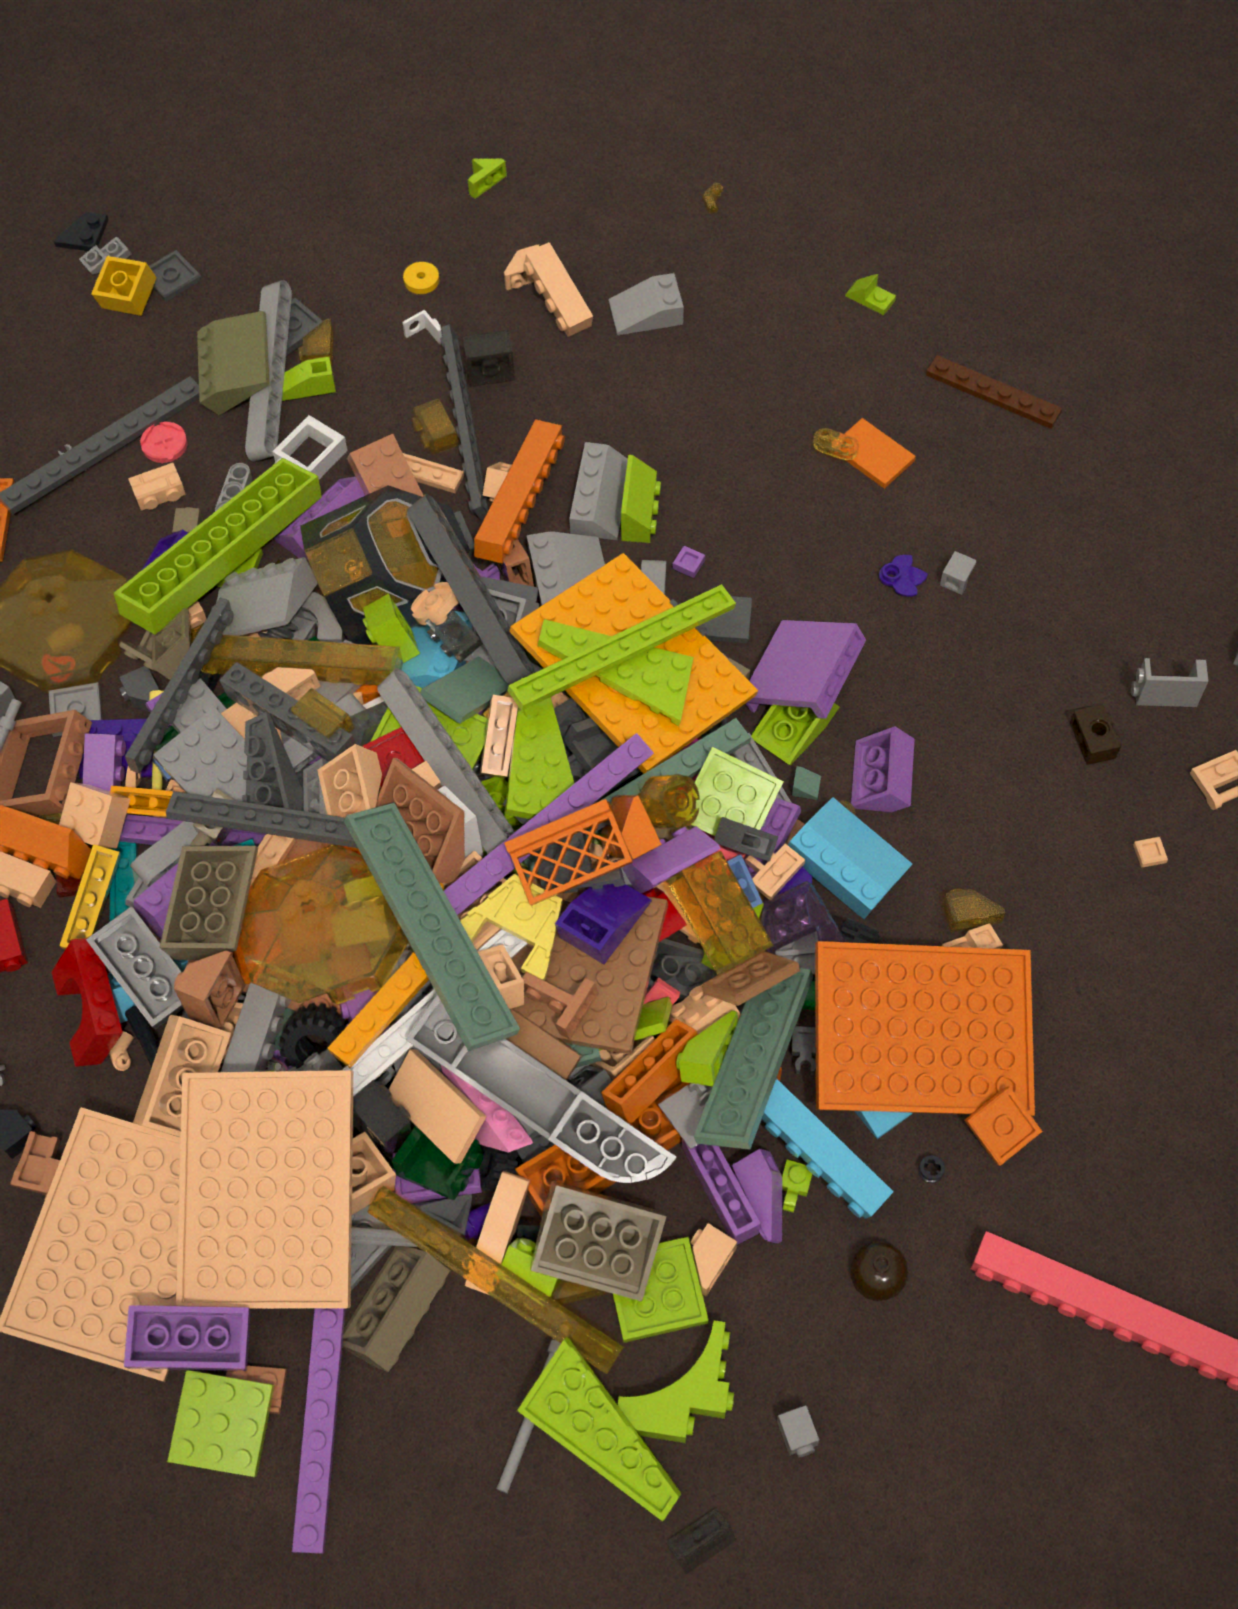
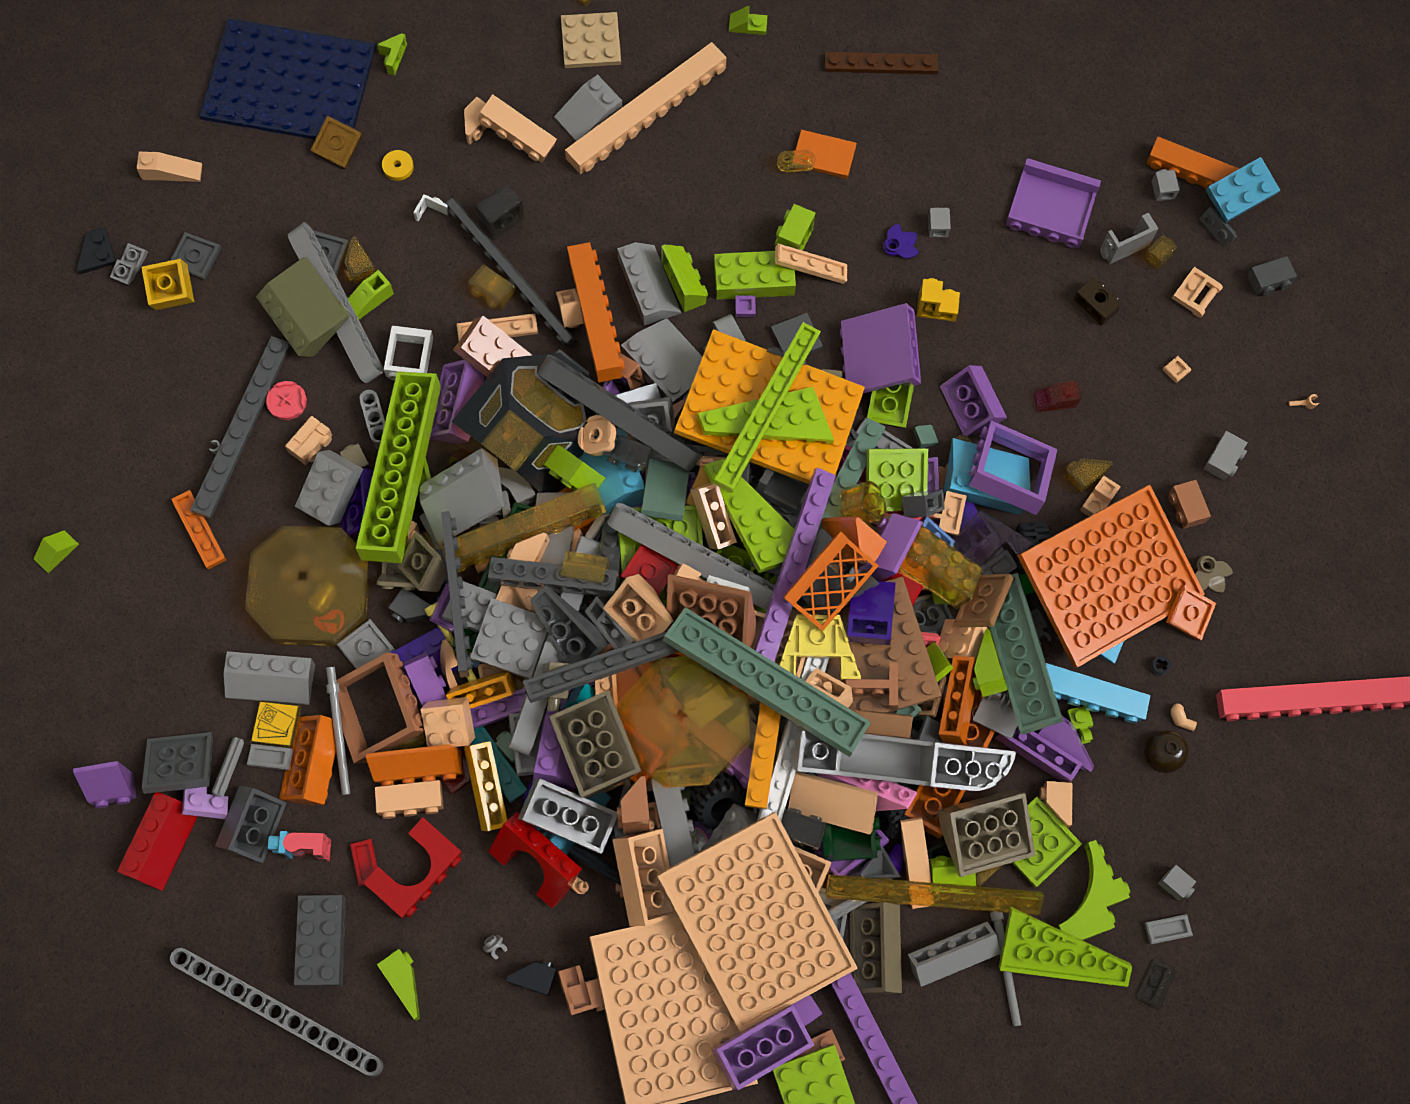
camera: 35 degrees left, 10 degrees up
(139, 533) = (329, 487): none -> light grey brick
(198, 186) = (167, 167): none -> light nougat slope
(269, 1328) = (807, 1010): none -> medium lavender brick
(368, 162) = (286, 79): none -> clear blue plate
(374, 230) = (336, 142): none -> pearl gold tile
(476, 1361) = (956, 954): none -> light grey brick
(693, 245) = (591, 40): none -> tan plate
(708, 328) = (646, 108): none -> light nougat brick
(718, 533) = (752, 275): none -> lime brick
(755, 1482) = (1168, 929): none -> light grey tile
(784, 548) = (810, 263): none -> light nougat tile
(787, 510) = (796, 228): none -> lime brick
(856, 878) = (1004, 489): none -> medium lavender window
(901, 650) = (937, 303): none -> yellow brick
(918, 1242) = (1179, 718): none -> light nougat arm
(985, 813) = (1058, 397): none -> clear red slope
(1058, 1102) = (1213, 577): none -> dark tan plate
(1075, 1004) = (1189, 504): none -> nougat brick
(1105, 611) = (1053, 203): none -> medium lavender panel
(1153, 972) = (1225, 456): none -> light grey brick
(1204, 716) = (1160, 252): none -> clear yellow brick

